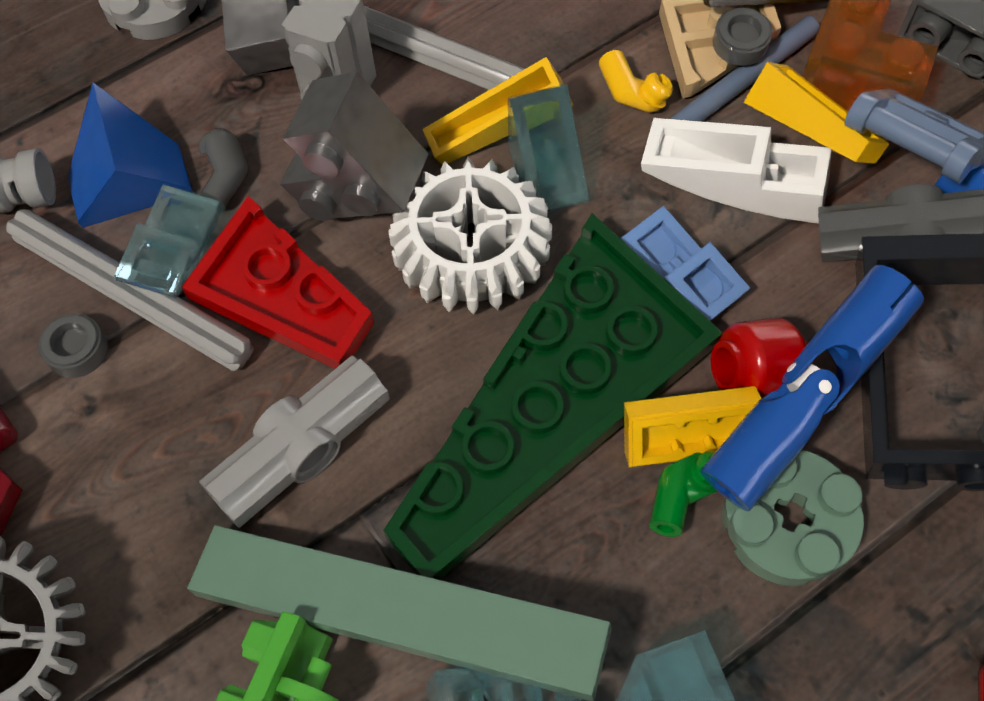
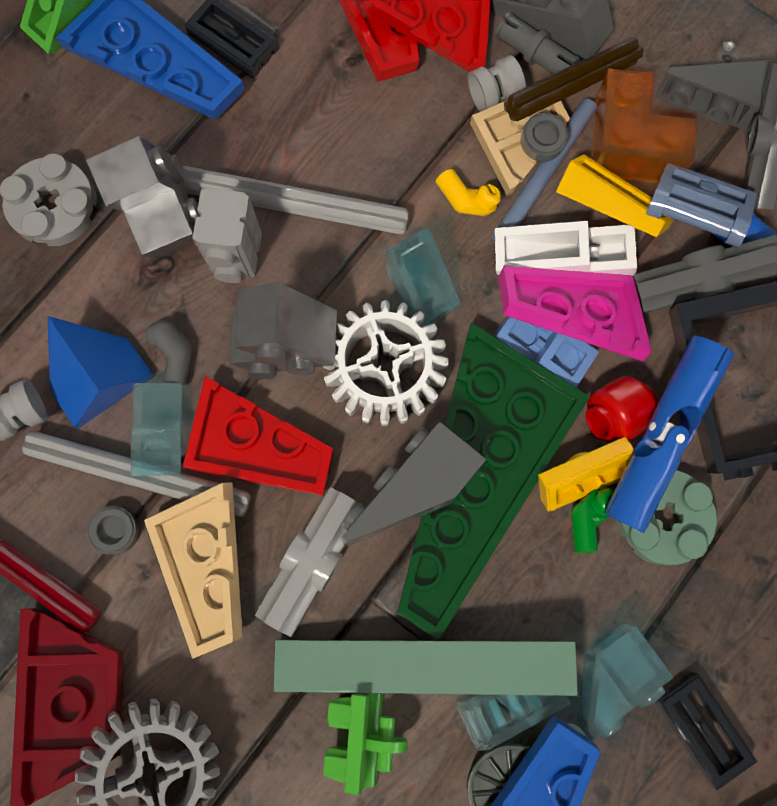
camera: 20 degrees left, 15 degrees up
(155, 409) = (201, 567): none -> tan wing
(460, 371) = (424, 483): none -> dark grey slope
(486, 116) = (370, 254): yellow piece -> none
(738, 224) = (578, 304): none -> dark pink wing

